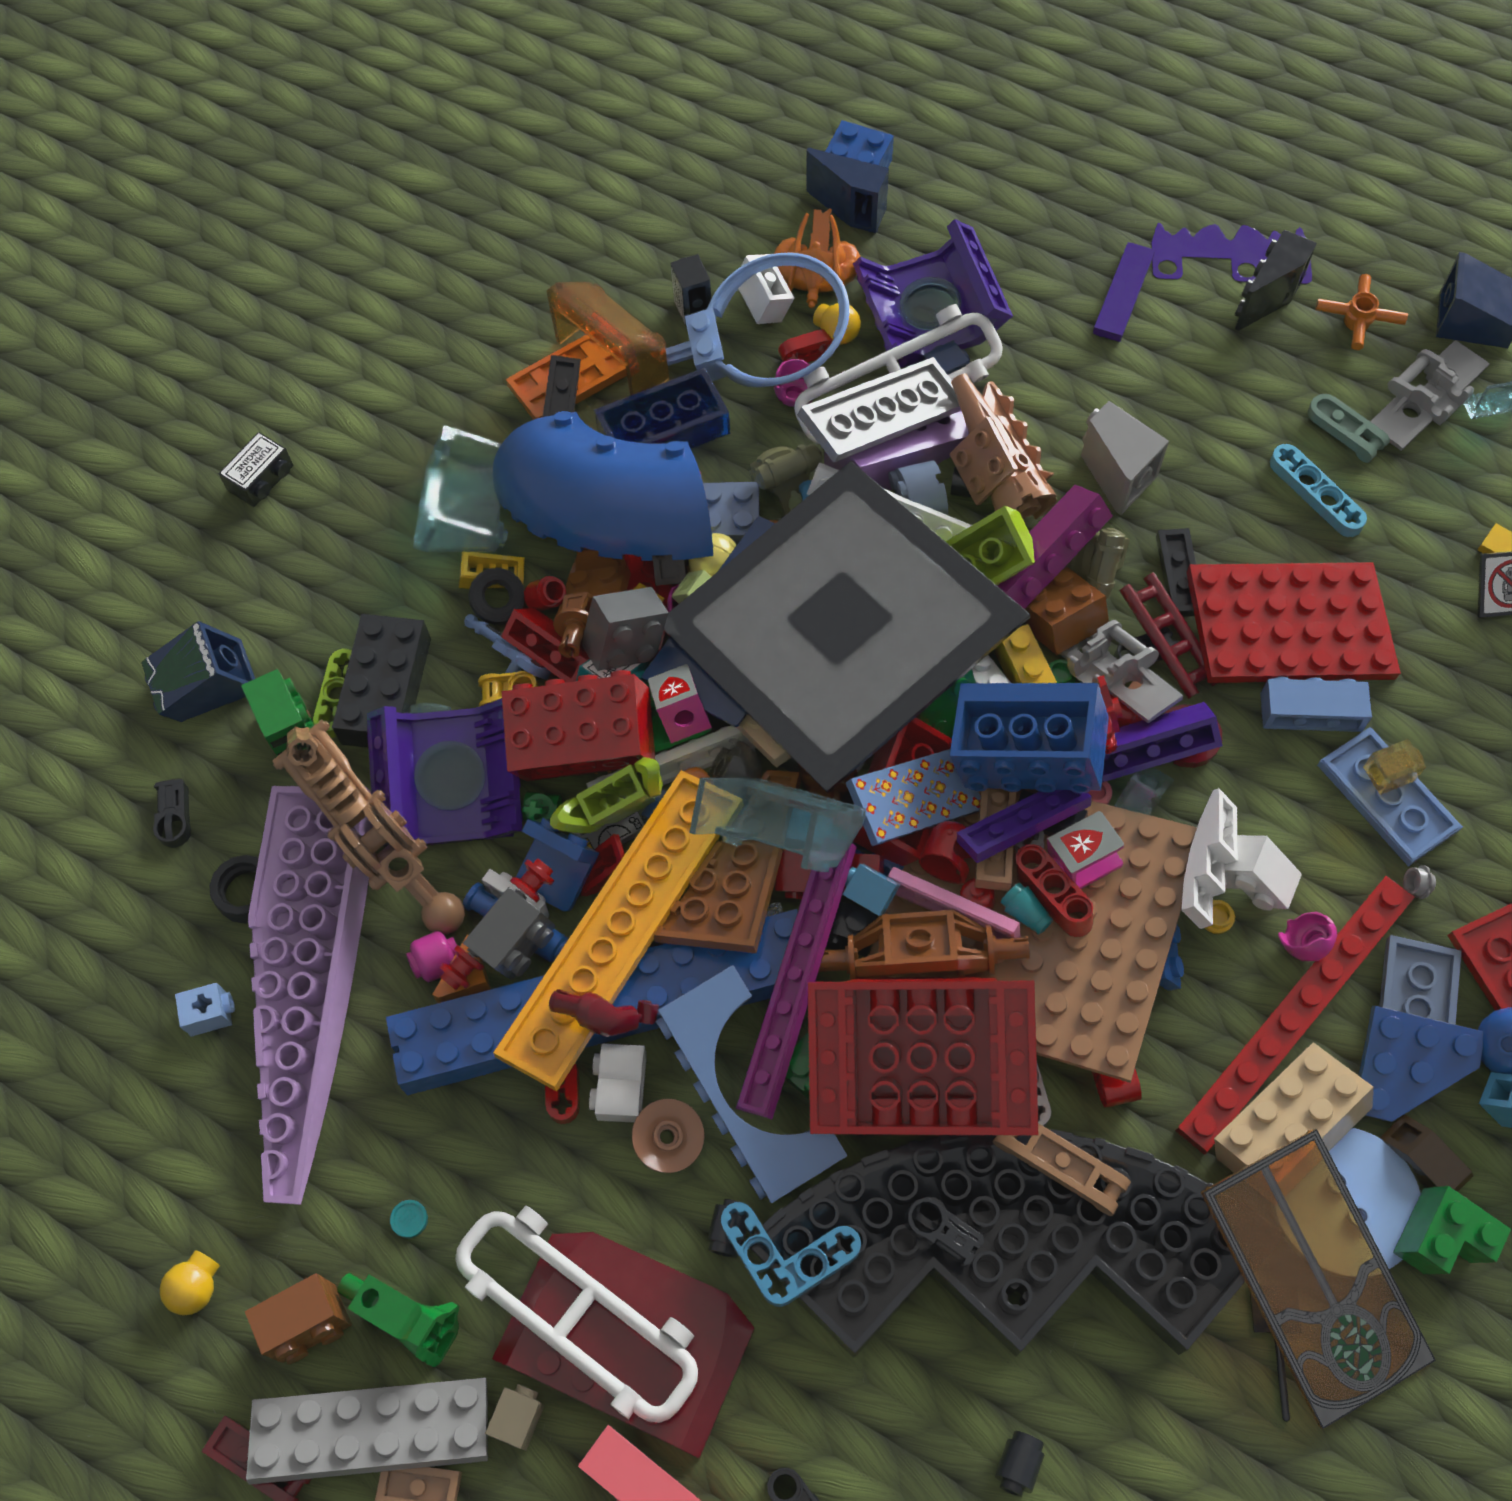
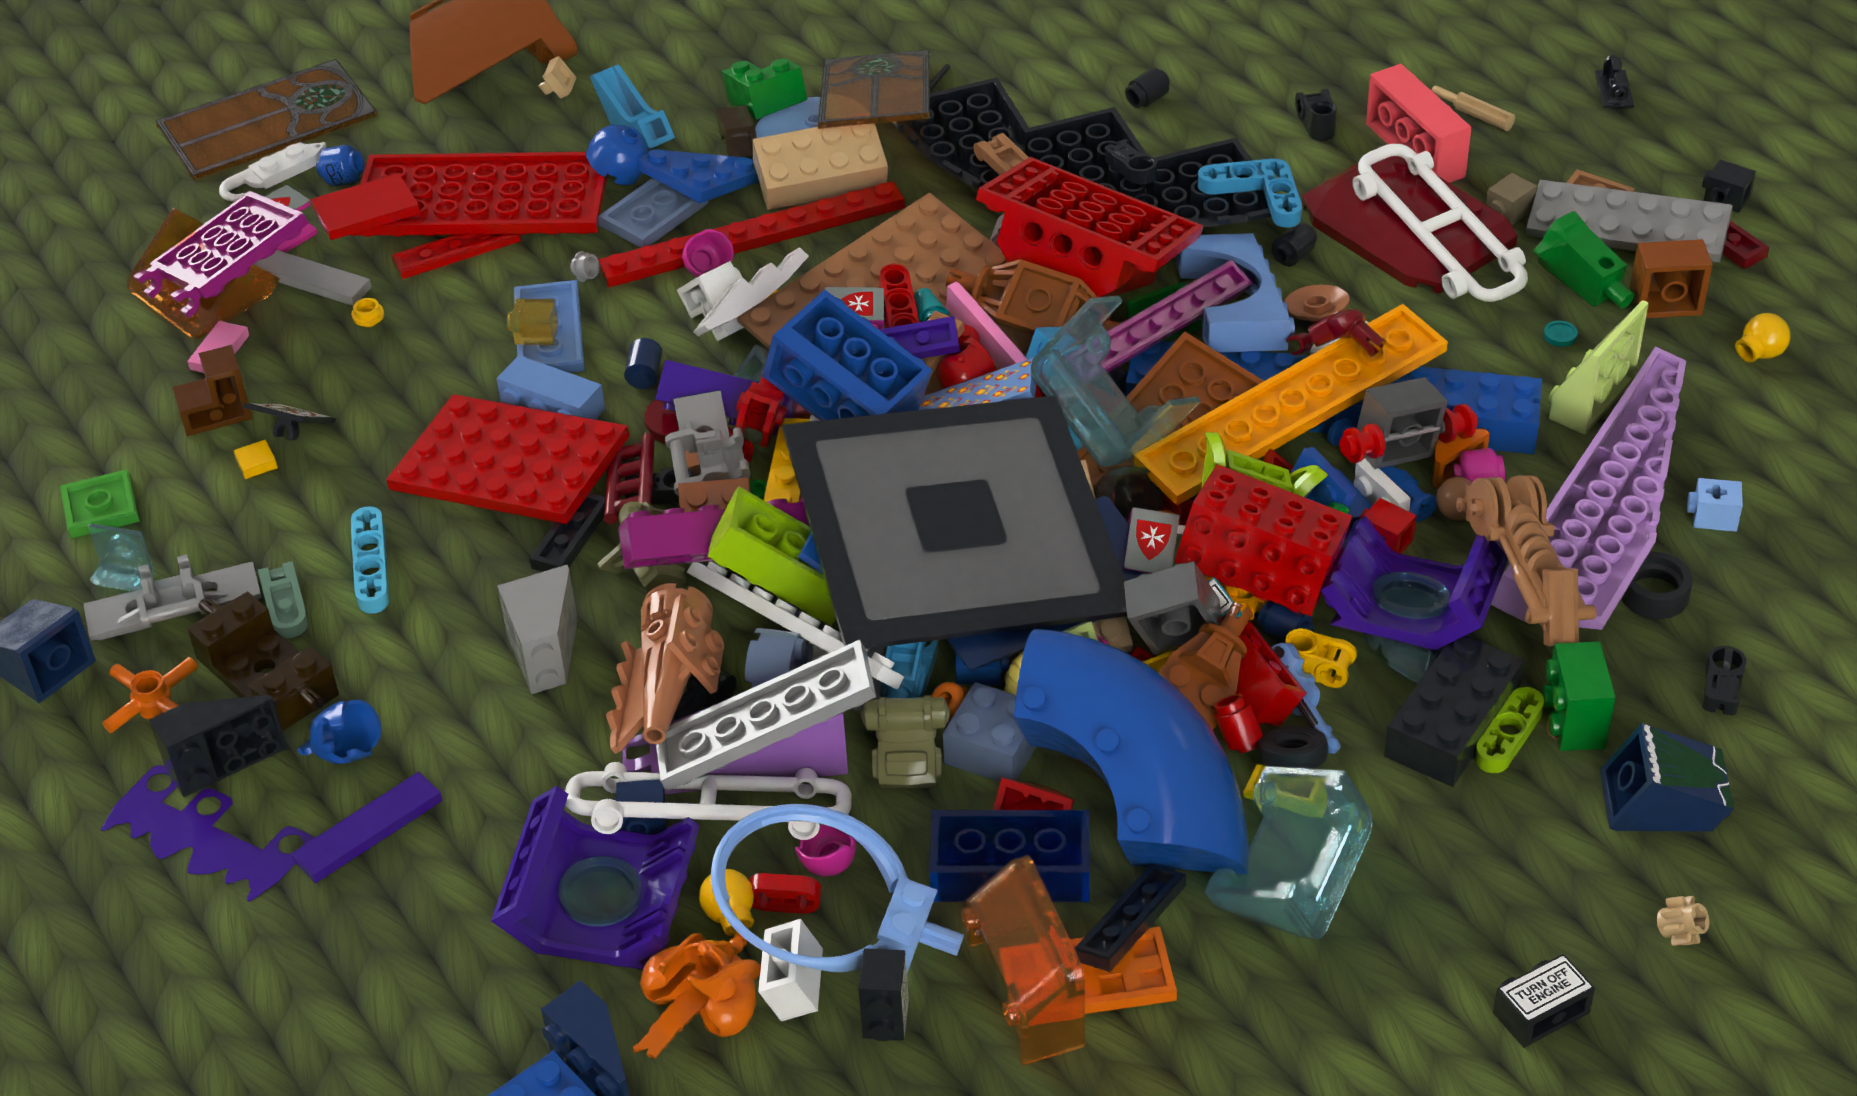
camera: 155 degrees left, 20 degrees down
(168, 563) = (1683, 920): none -> tan gear
(342, 1122) = (1600, 376): none -> yellowish green slope
(497, 853) = (1392, 523): none -> red brick
(1197, 332) = (343, 732): none -> blue helmet
(1262, 774) = (643, 363): none -> dark blue brick
(1274, 360) = (241, 642): none -> dark brown brick

